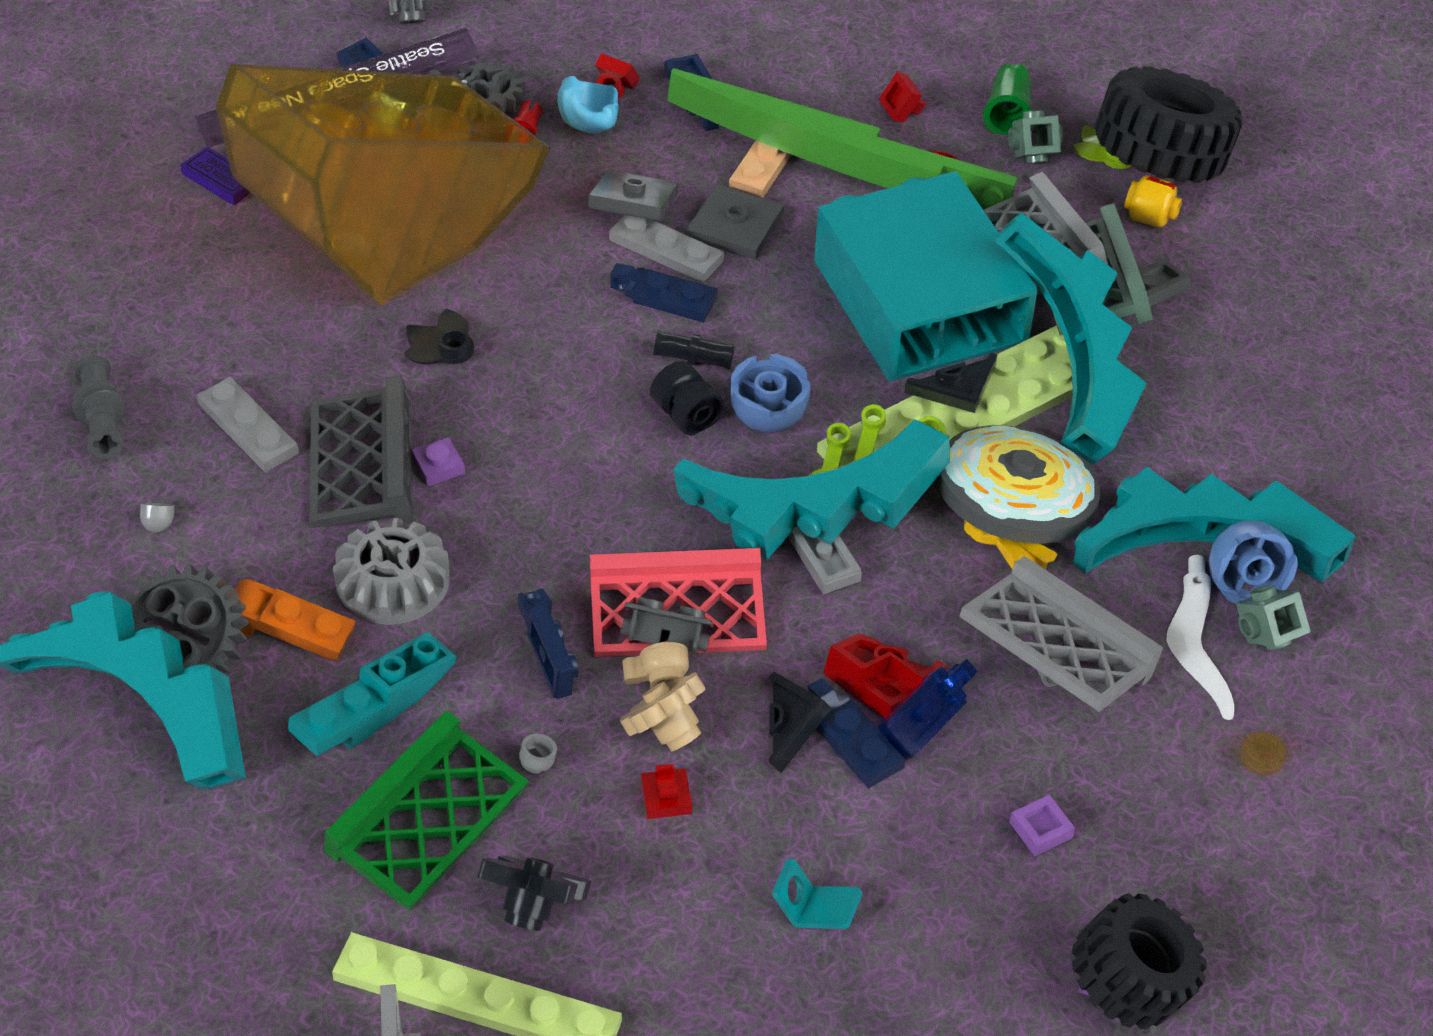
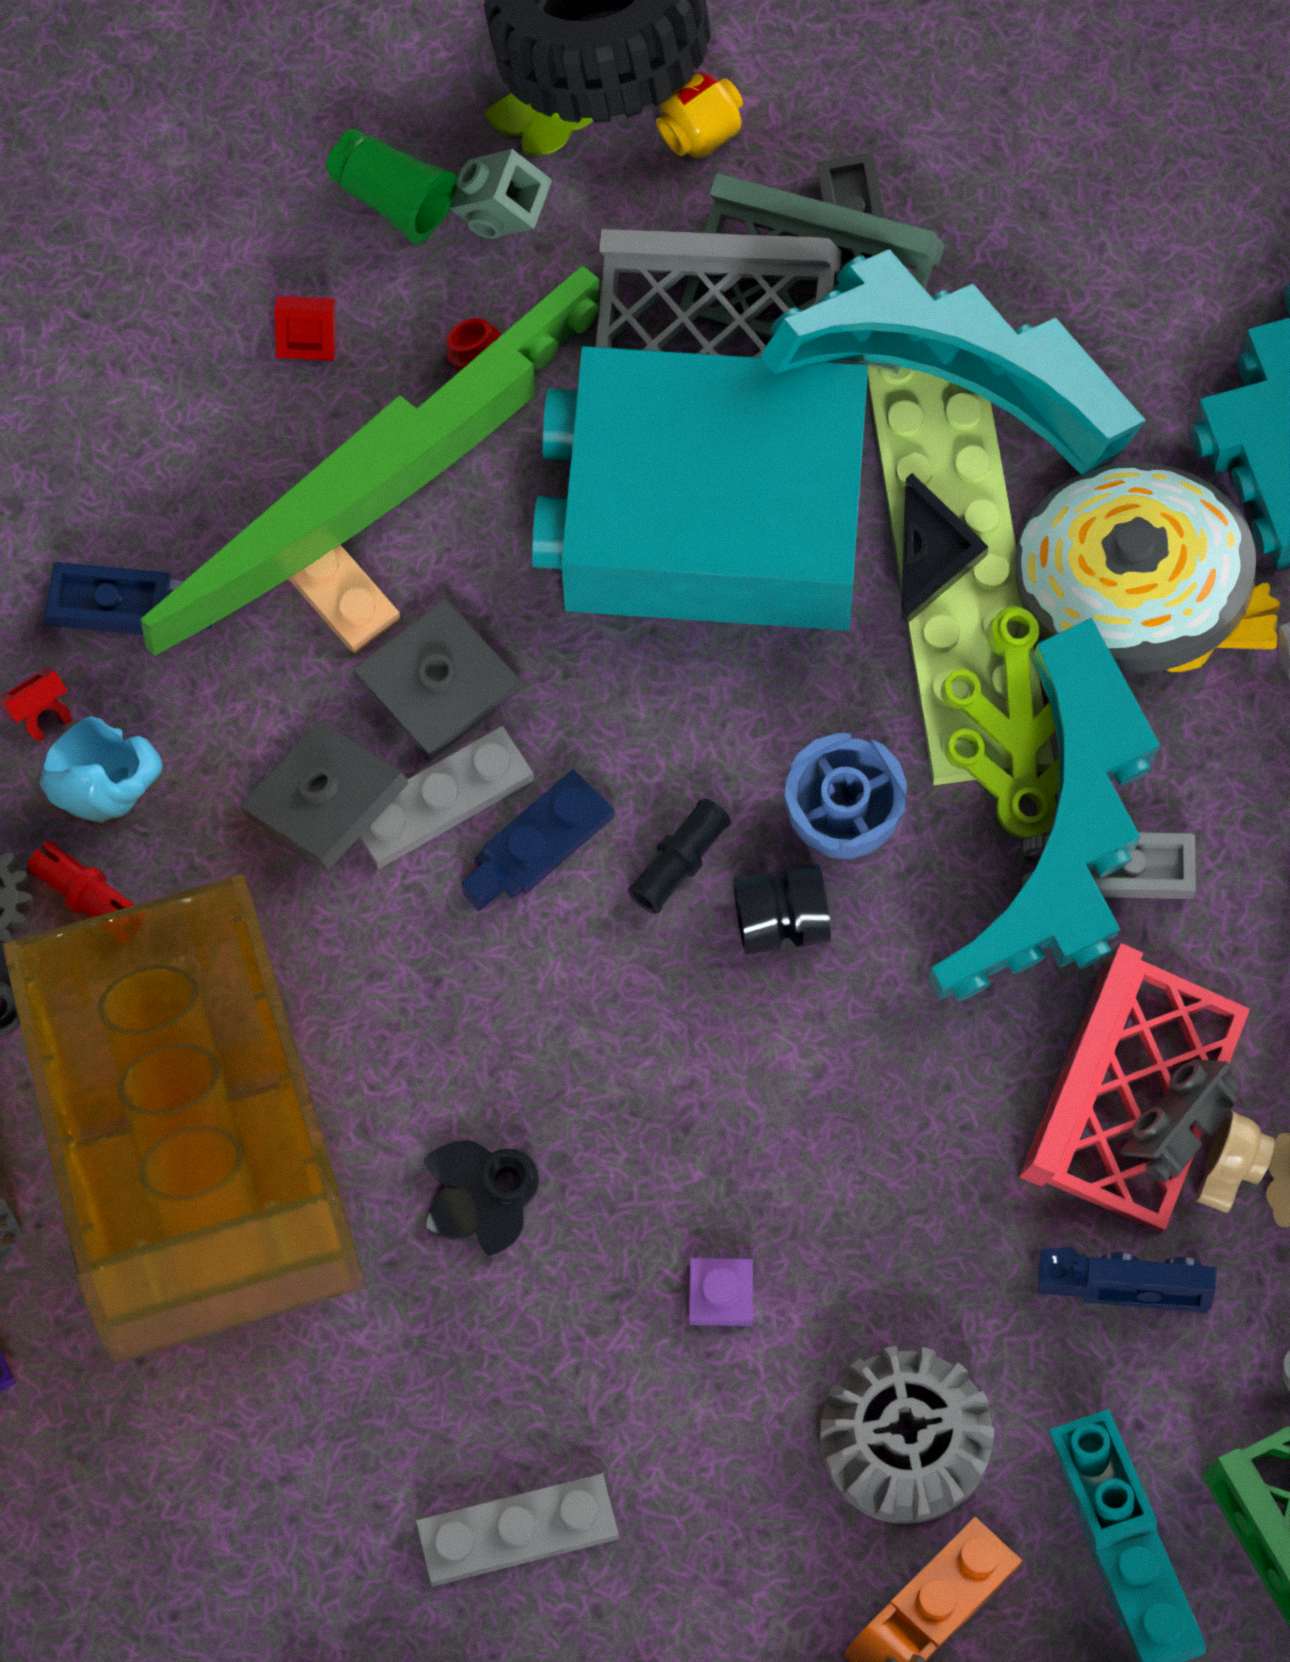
camera: 60 degrees left, 20 degrees up
(396, 456) = (685, 1342): dark grey fence -> none

